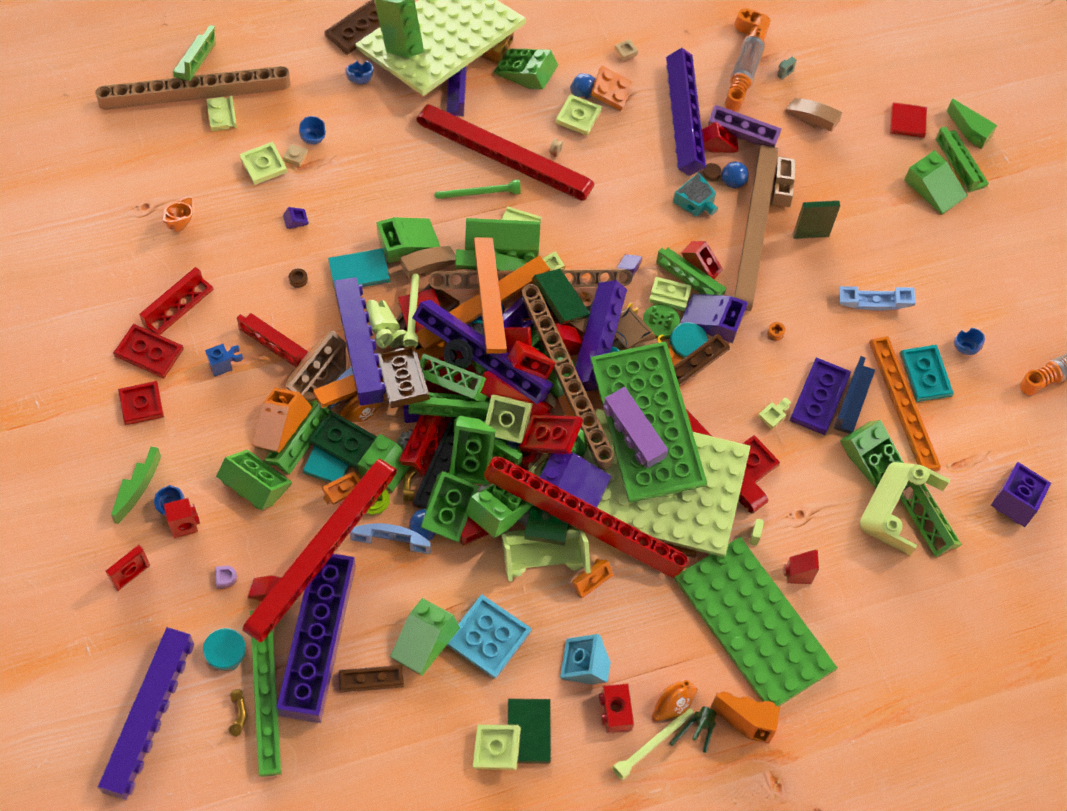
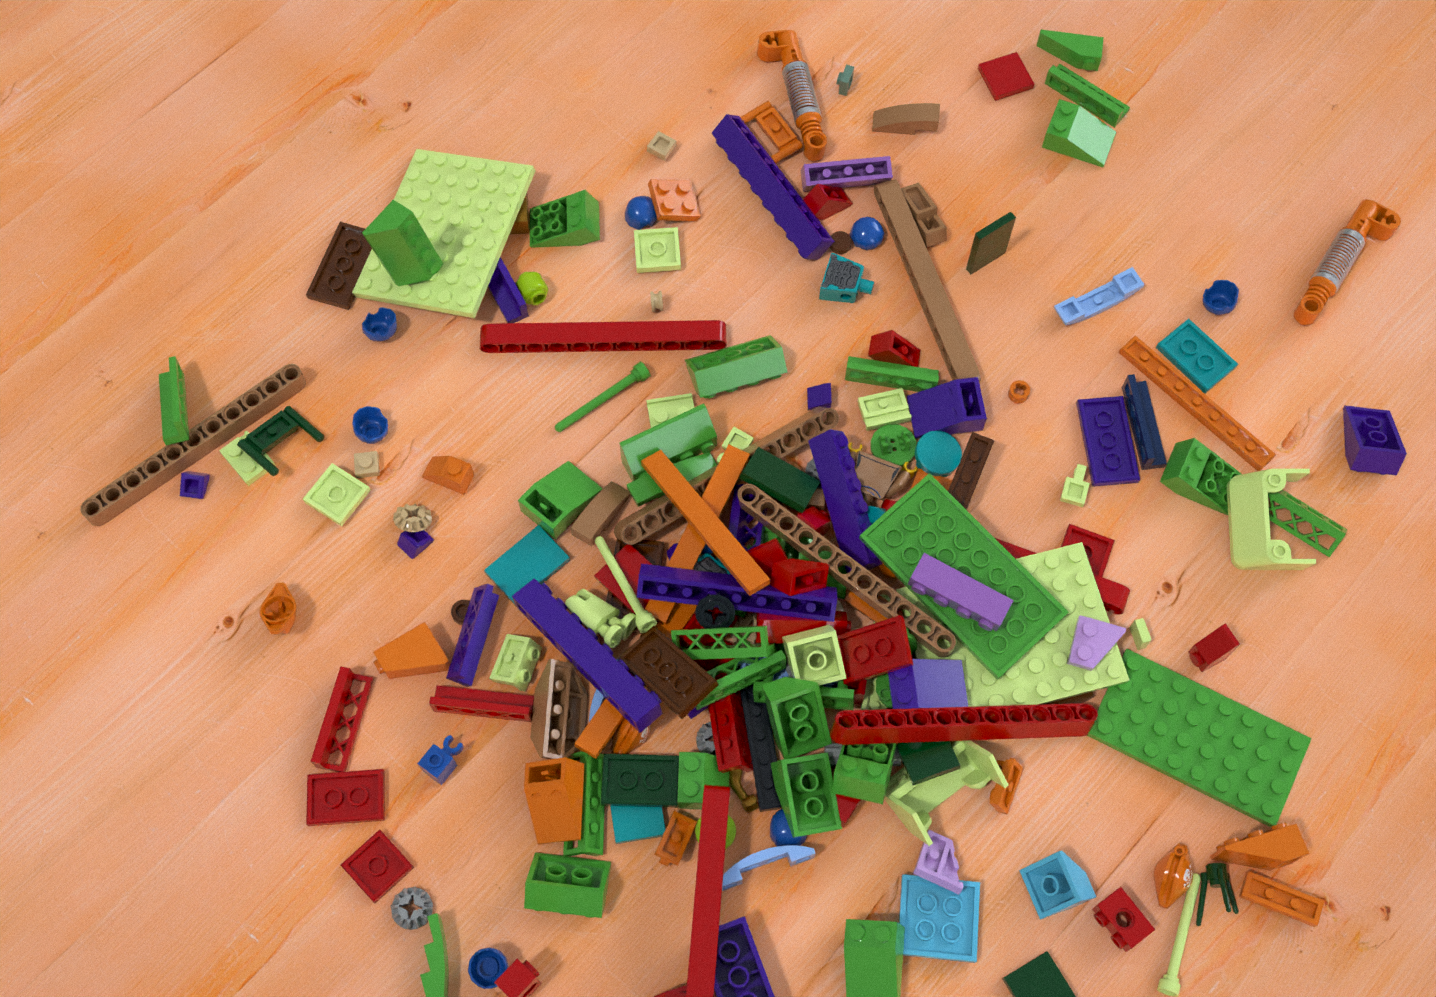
camera: 25 degrees left, 5 degrees up
(143, 447) = (418, 917): none -> light grey gear
(177, 112) = (194, 484): none -> dark purple slope
(246, 285) = (411, 654): none -> orange slope
(247, 104) = (274, 432): none -> dark green plate
(294, 294) = (473, 635): none -> dark purple fence
(302, 201) = (414, 523): none -> tan gear
(312, 325) = (516, 661): none -> yellowish green bracket
(345, 187) = (449, 473): none -> orange slope
(475, 97) = (532, 288): none -> lime head
(510, 599) = (938, 863): none -> lavender wing
(583, 215) = (736, 366): none -> bright green slope
(713, 513) = (1092, 642): none -> lavender wing
(714, 77) = (775, 129): none -> orange plate
(742, 759) = (1281, 899): none -> orange plate

